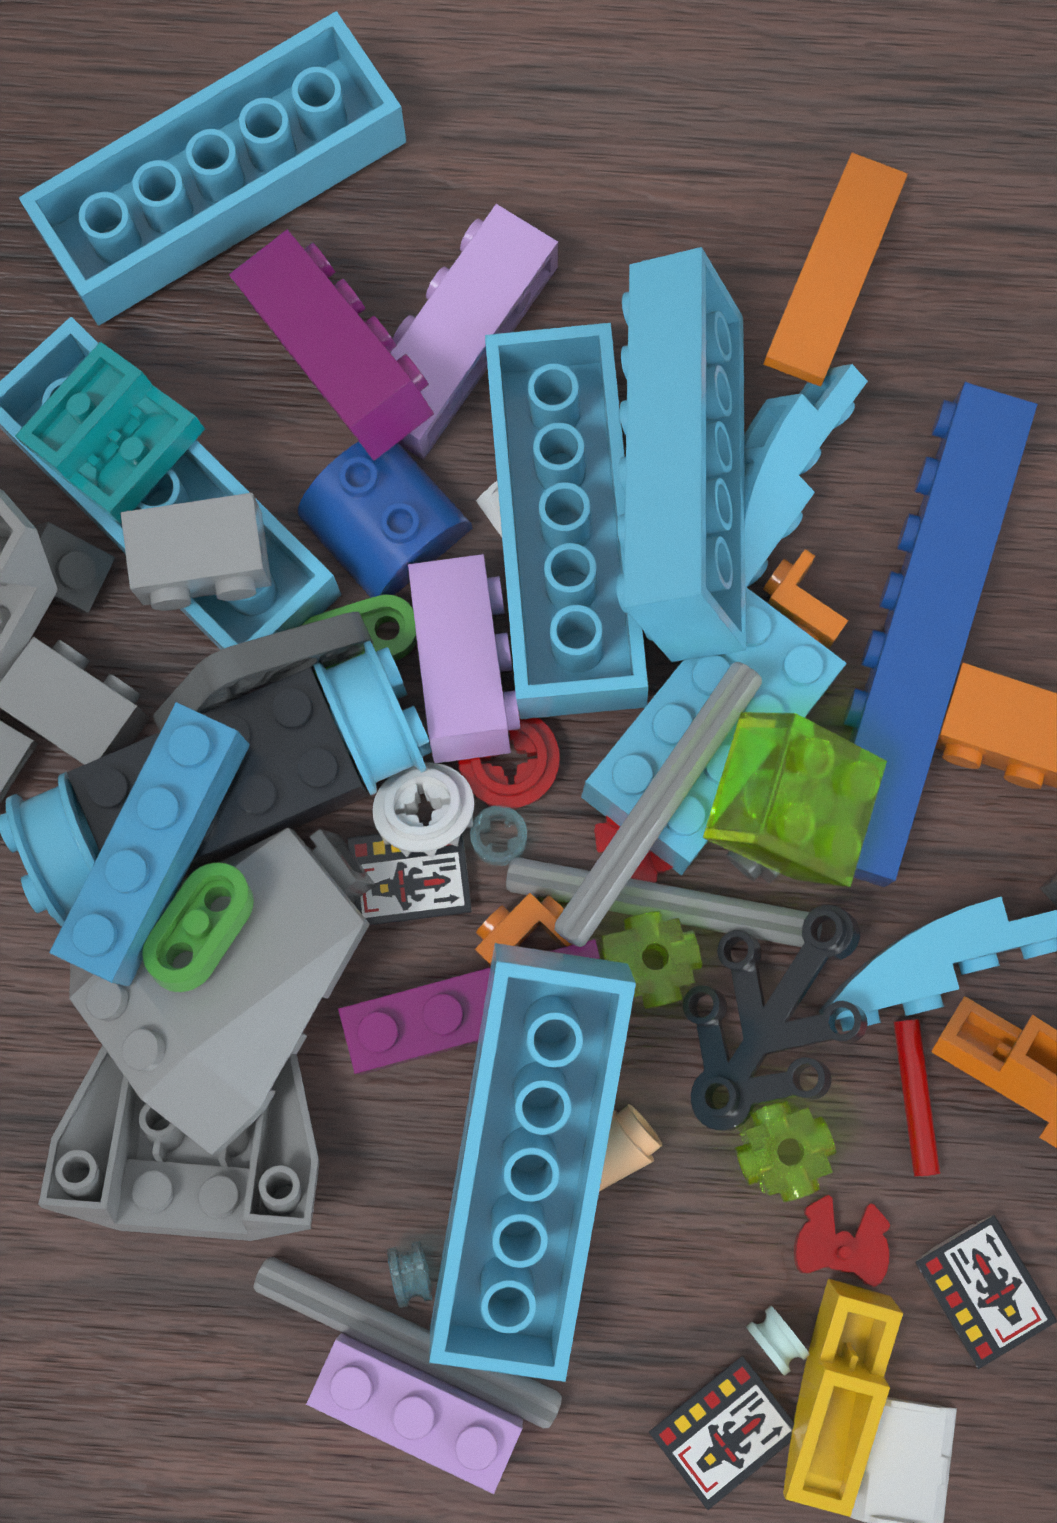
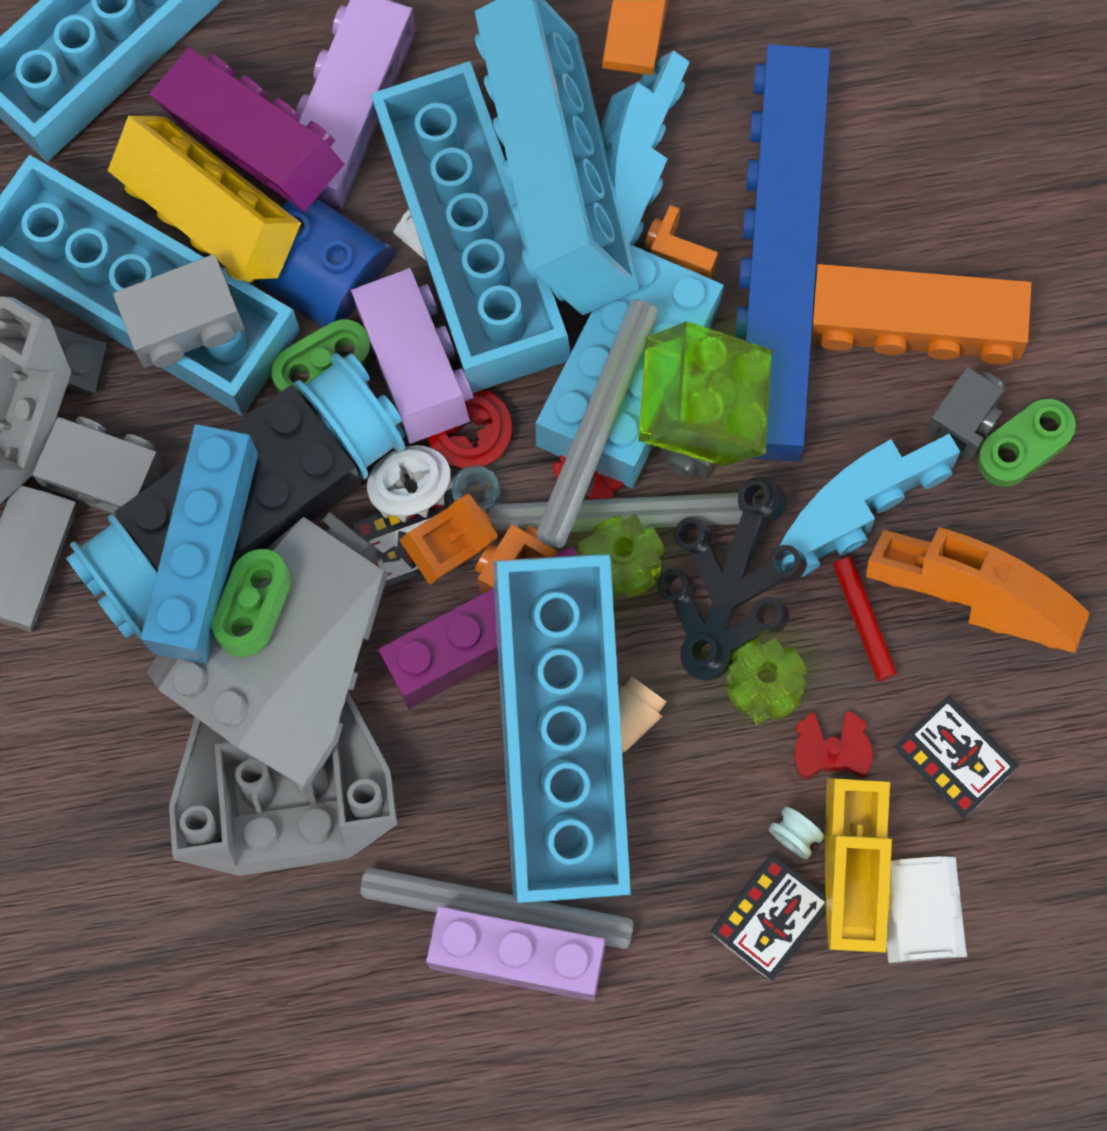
camera: 10 degrees left, 5 degrees down
(110, 432) = (85, 237): teal slope -> none
(262, 415) = (203, 198): none -> yellow brick
(265, 661) = (253, 386): dark grey beam -> none
(410, 1274) = (486, 851): clear light blue bush -> none
(453, 891) = (449, 538): none -> orange bracket

